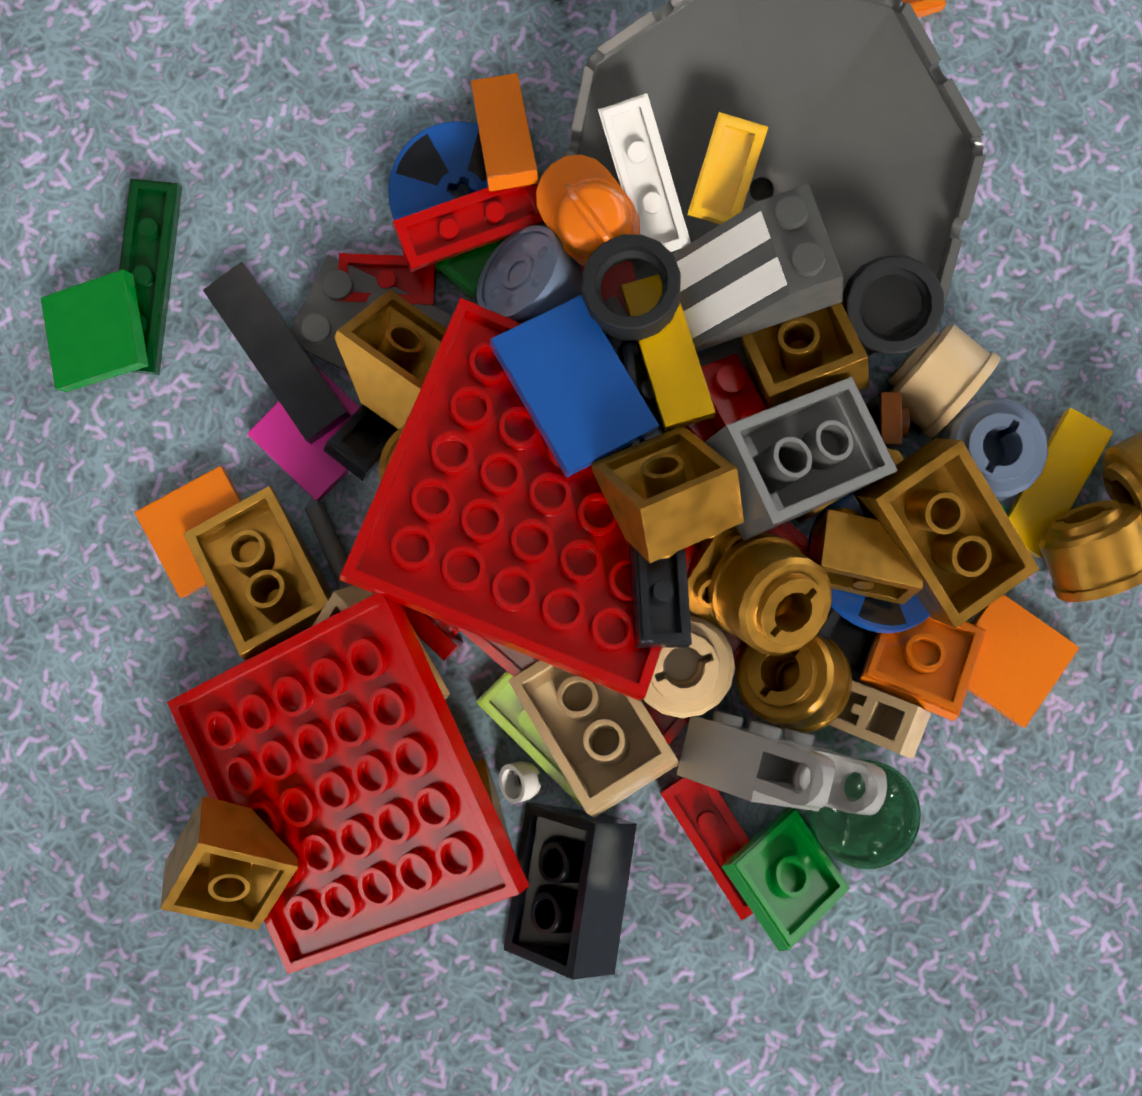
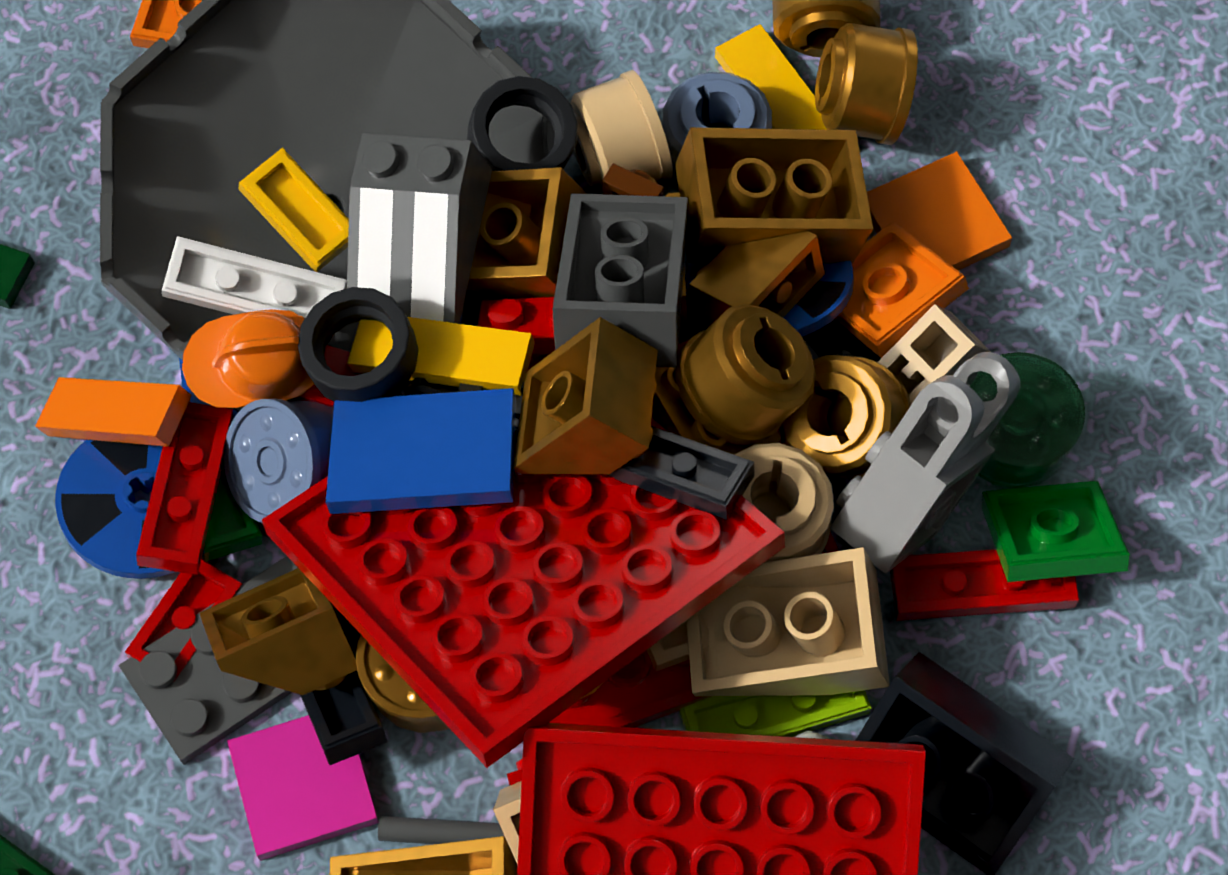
camera: 60 degrees left, 20 degrees down
(276, 353) = (189, 772): black tile -> none

